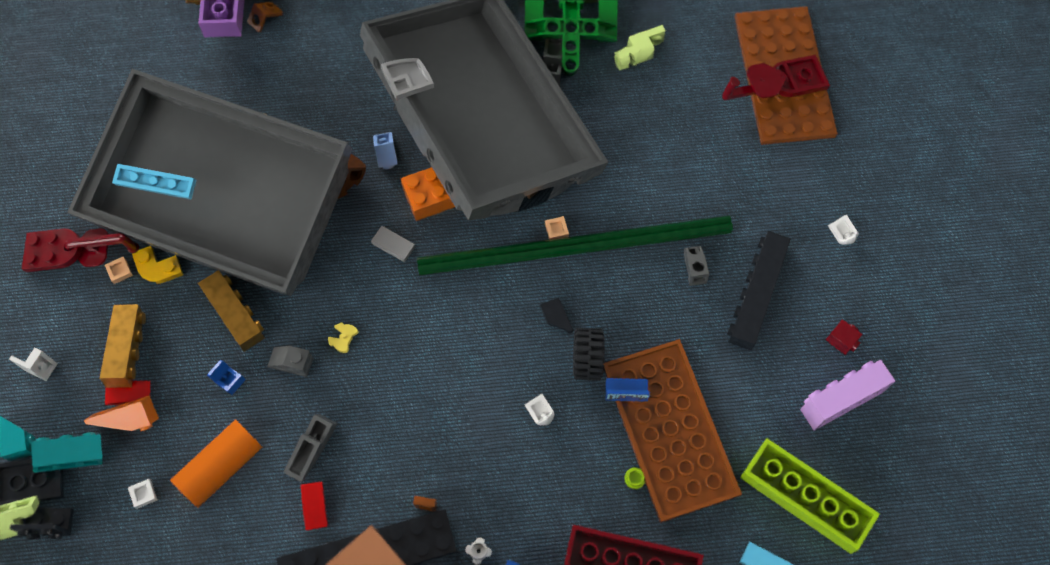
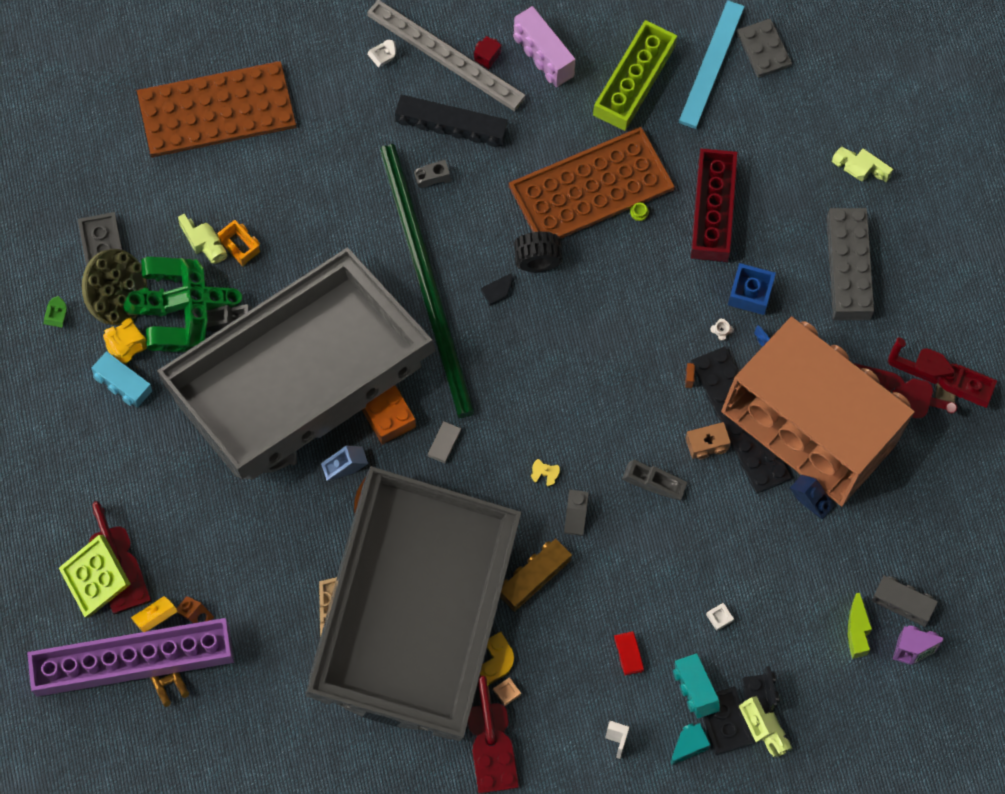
camera: 100 degrees left, 0 degrees up
(122, 346) = (586, 663): pearl gold brick -> none
(128, 416) = (653, 647): orange slope -> none
(154, 181) = (428, 647): medium azure plate -> none
(216, 463) = (681, 559): orange brick -> none
(226, 377) = (602, 564): blue bracket -> none
(314, 505) = (705, 467): red slope -> none
(350, 522) = (714, 433): none -> medium nougat brick
(407, 77) = (300, 413): light grey plate -> none
(540, 410) = (592, 291): white plate -> none
(556, 228) = (411, 296): light nougat plate -> none
(626, 390) = (565, 219): blue panel -> none
(629, 75) = (242, 233): none -> light orange window
(785, 78) = (234, 103): dark red plate -> none
(840, 296) = (446, 55): none -> light grey plate

